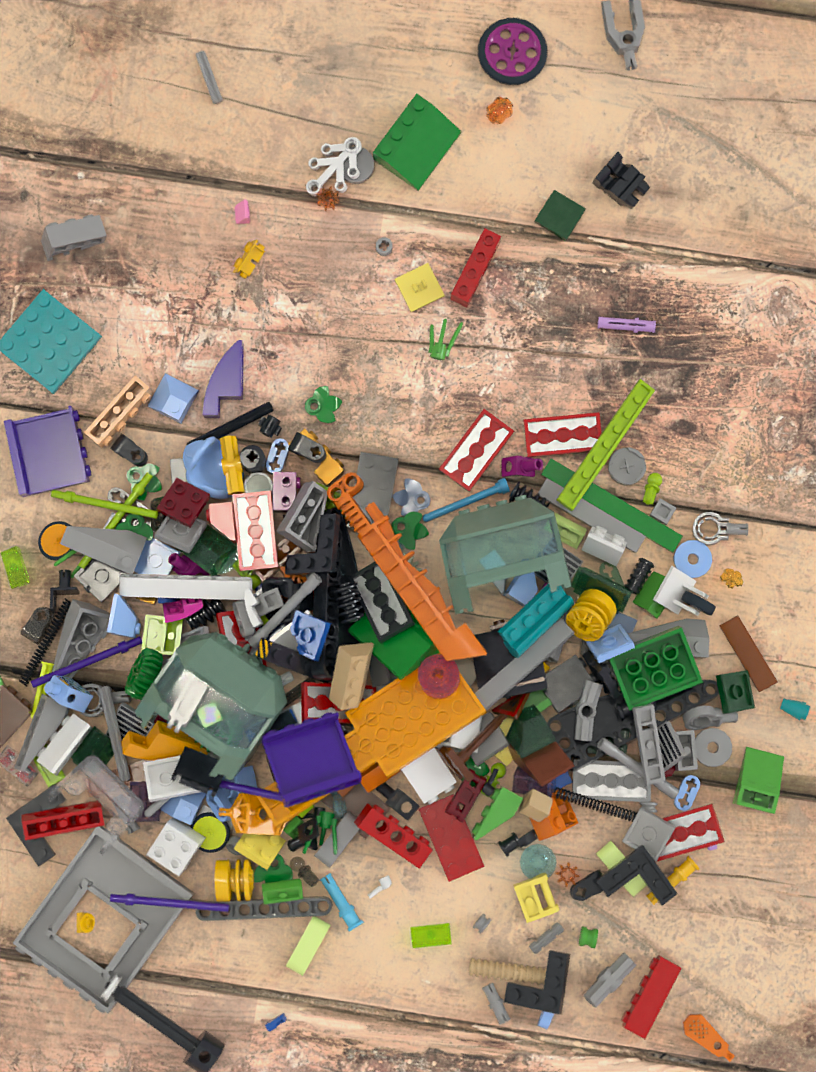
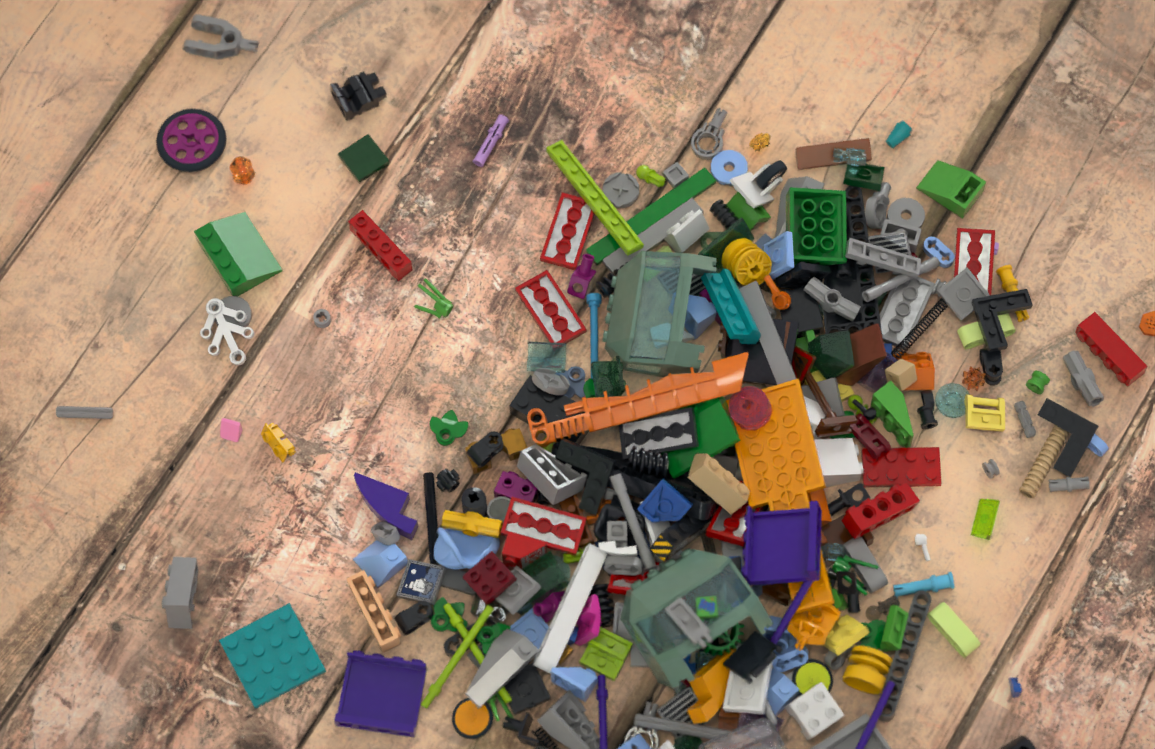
camera: 65 degrees left, 15 degrees down
(143, 673) = (638, 677): green gear -> none
(164, 442) = (421, 582): none -> tile
(193, 390) = (385, 533): none -> light grey beam
(273, 454) = (481, 483): light blue beam -> none
(324, 195) = (254, 353): clear orange gear -> none
(399, 479) = (550, 382): none -> light grey tile
(419, 287) = (374, 303): light yellow piece -> none
(420, 532) = (608, 377): none -> clear green bracket
(425, 466) = (546, 356): none -> clear light blue panel
(568, 660) = (780, 299): none -> orange plate
(751, 673) = (852, 156): none -> clear light blue plate

